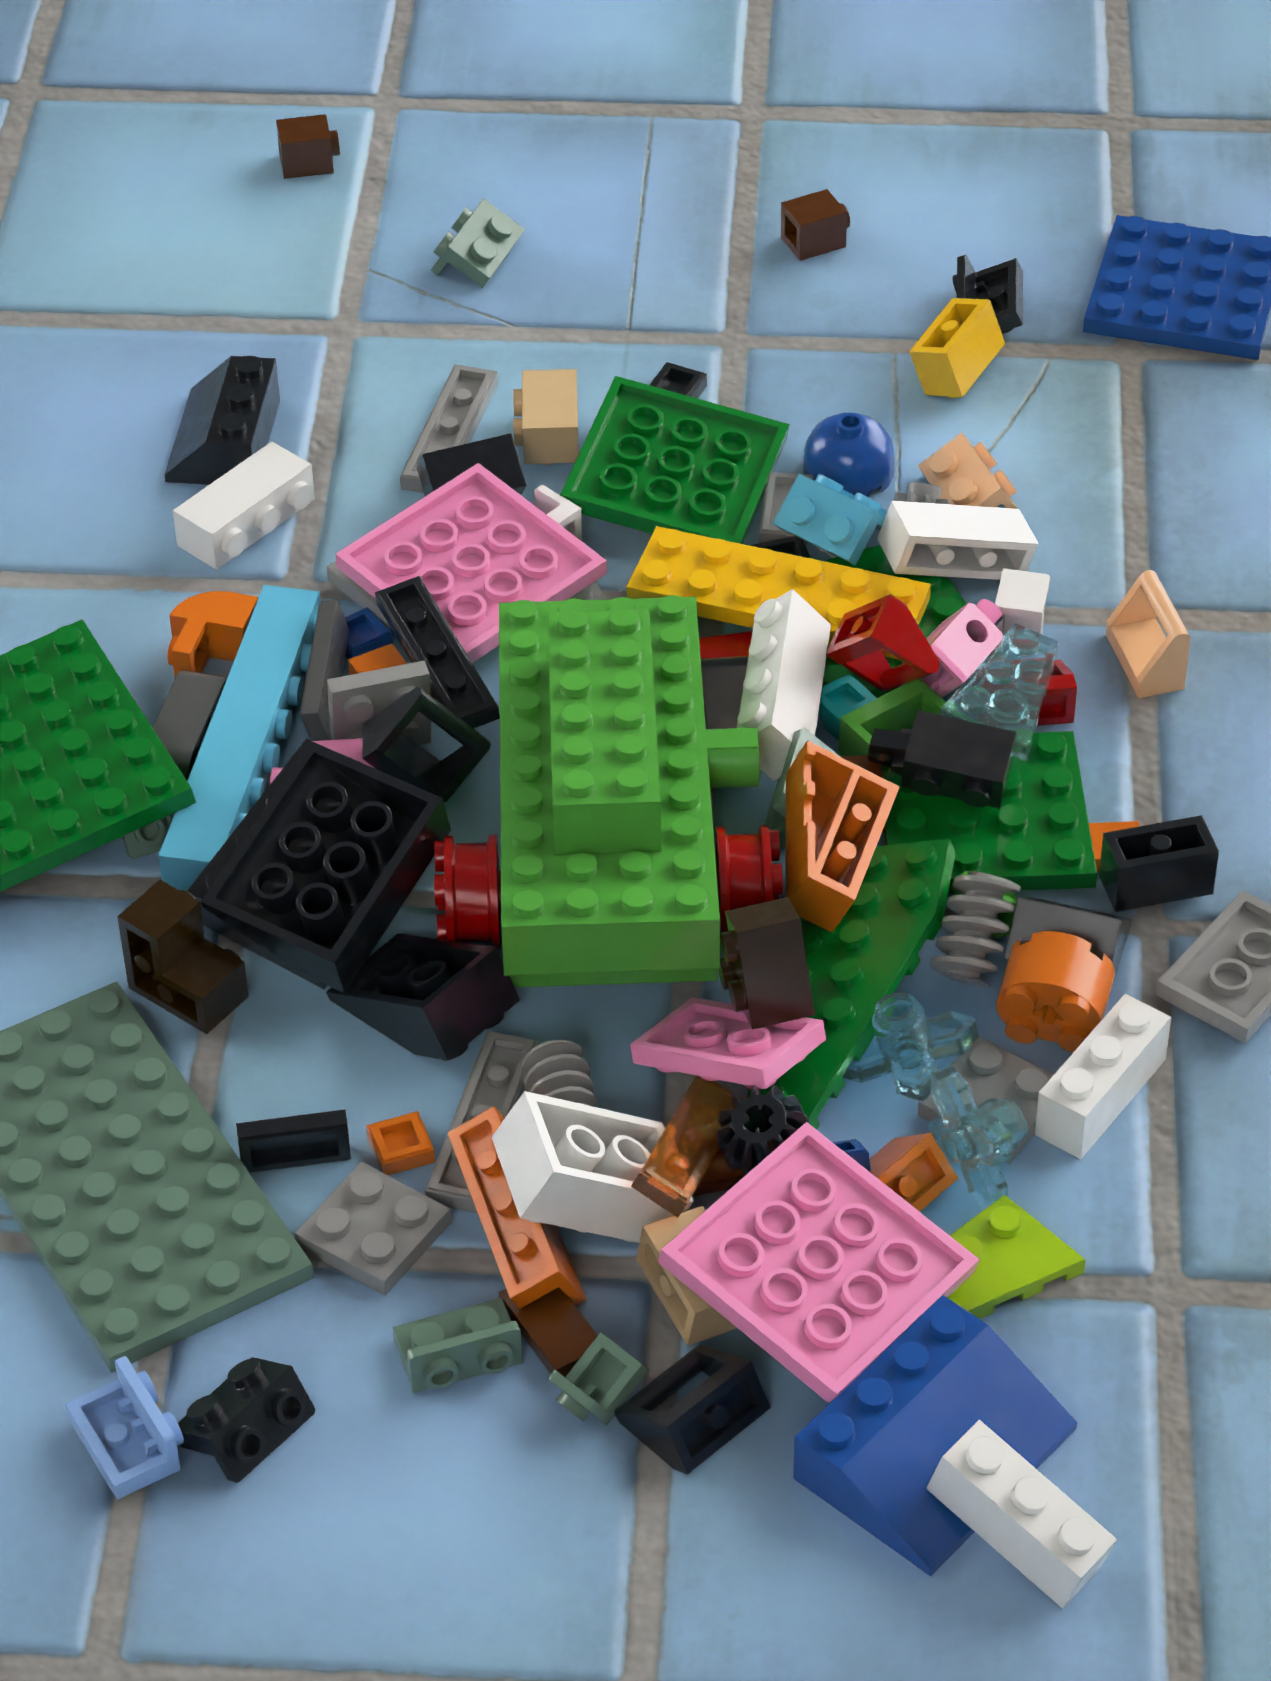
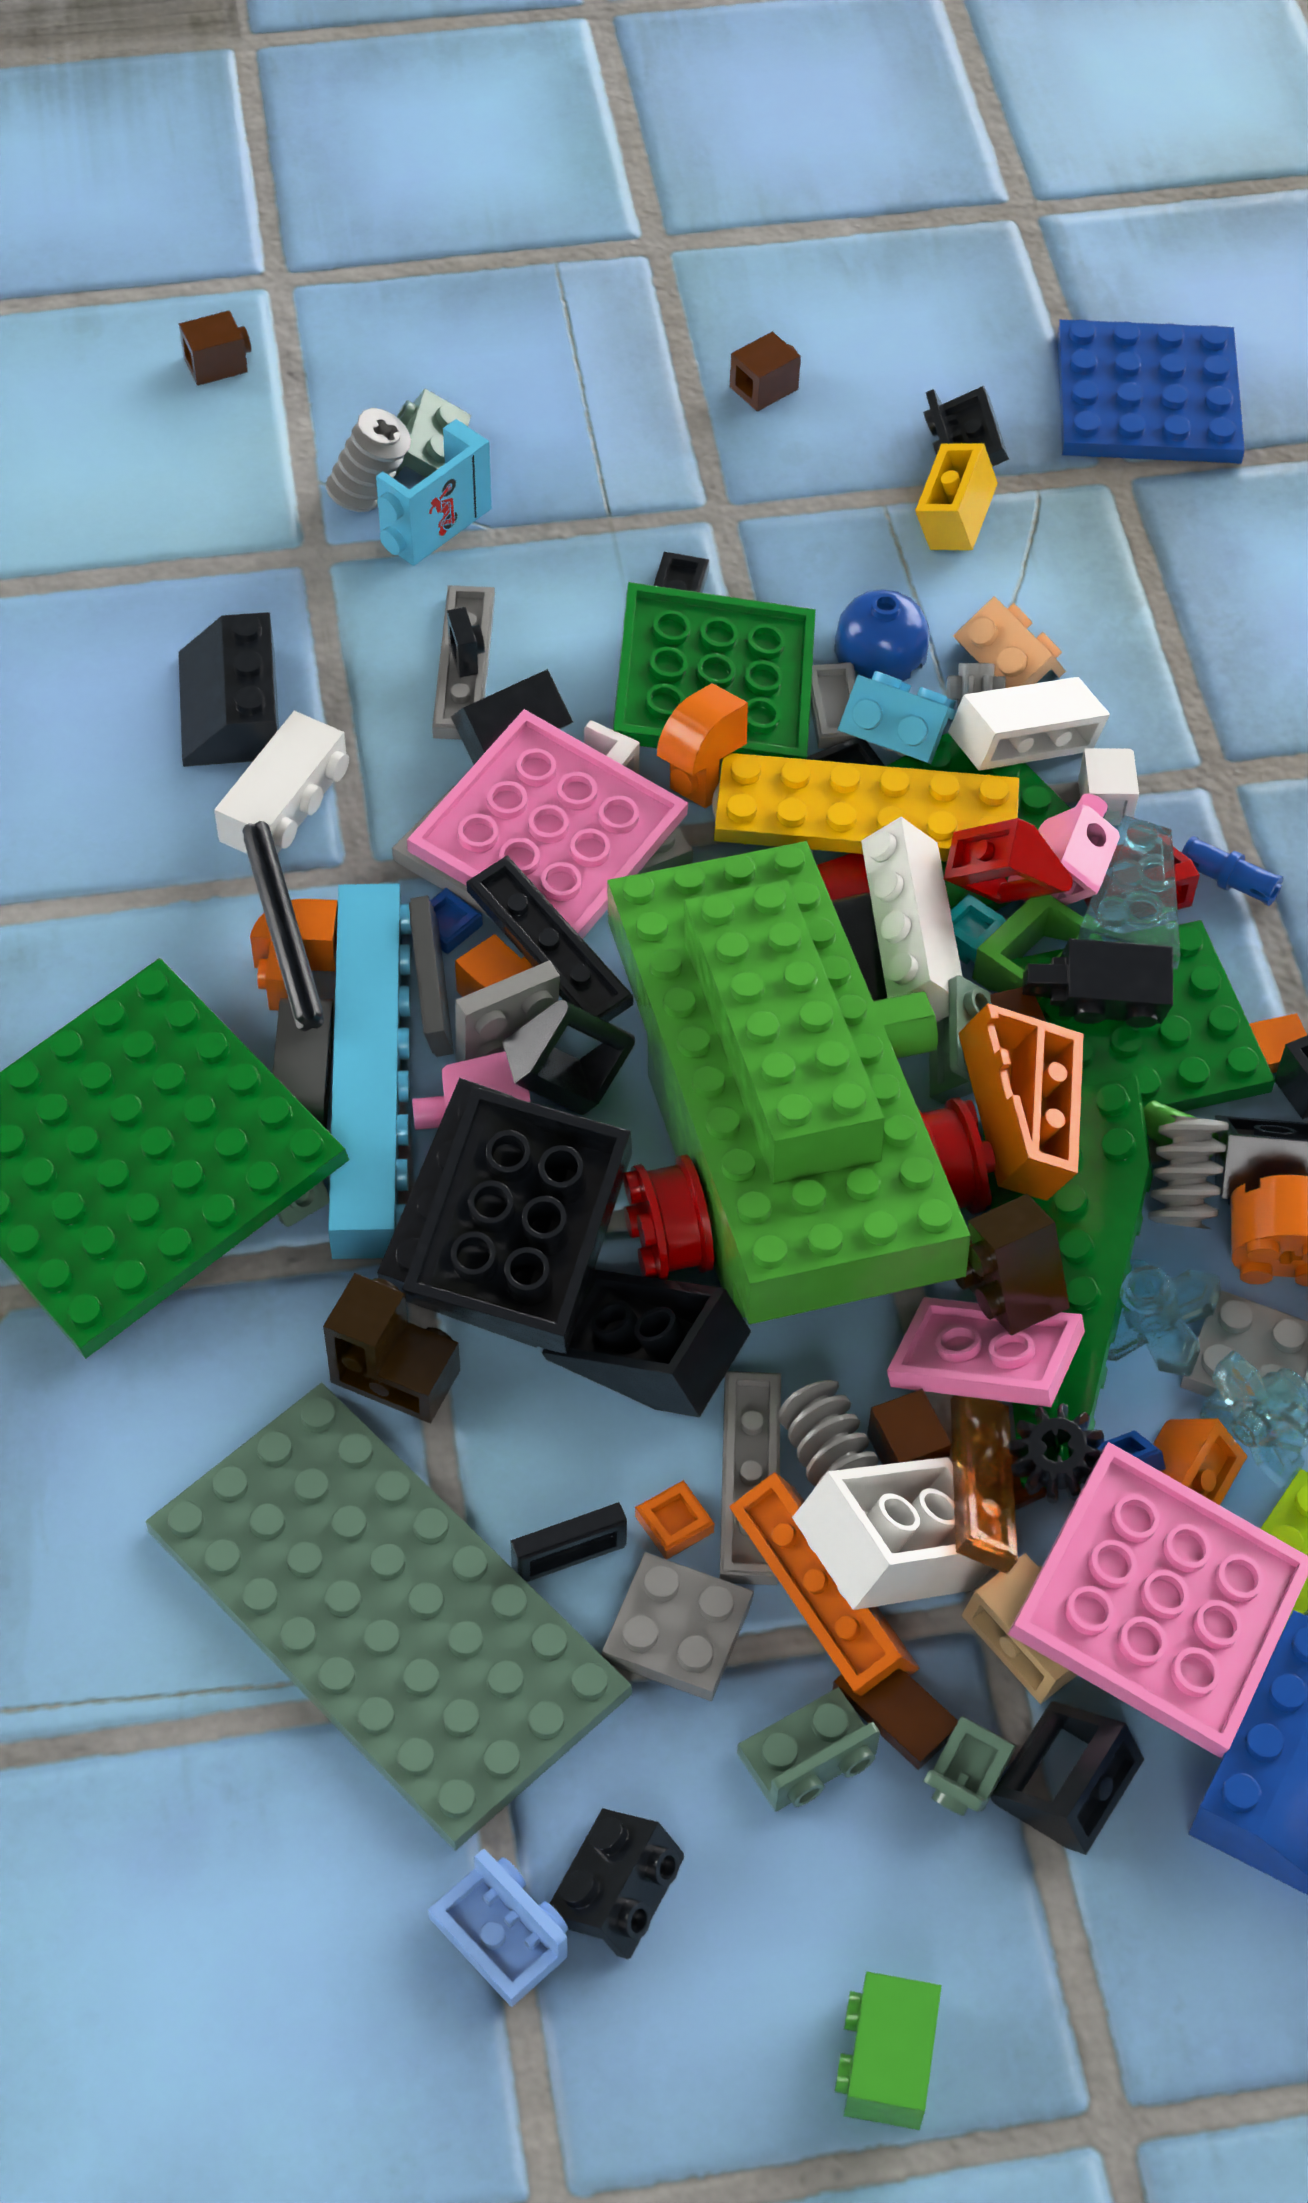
camera: 15 degrees left, 10 degrees up
(199, 608) = (283, 926): none -> black axle
(410, 249) = (374, 446): none -> light grey piece
(444, 1590) = (891, 2050): none -> bright green brick
(449, 407) = (464, 641): none -> black plate
(463, 291) = (441, 504): none -> medium azure panel
(548, 416) = (568, 635): tan brick -> none
(634, 504) = (698, 736): none -> orange brick
(637, 1093) = (907, 1430): none -> reddish brown brick
(1118, 695) = (1233, 871): none -> blue pin
(1148, 657) = (1237, 811): light nougat tile -> none

